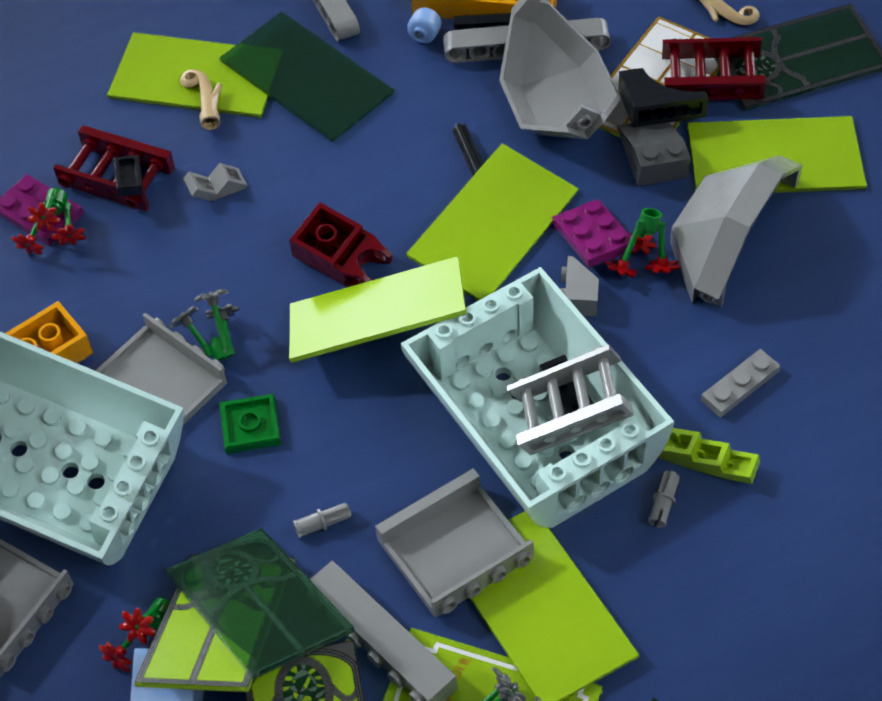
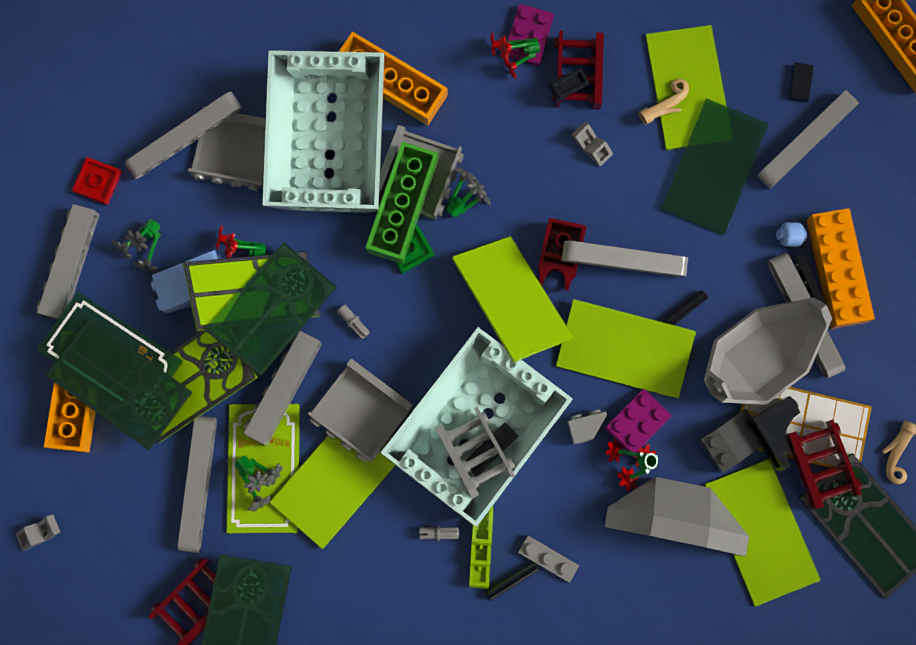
camera: 65 degrees right, 25 degrees up
(213, 414) = (402, 202): none -> bright green brick
(379, 180) = (624, 258): none -> light grey beam
(758, 432) = (512, 581): none -> black axle

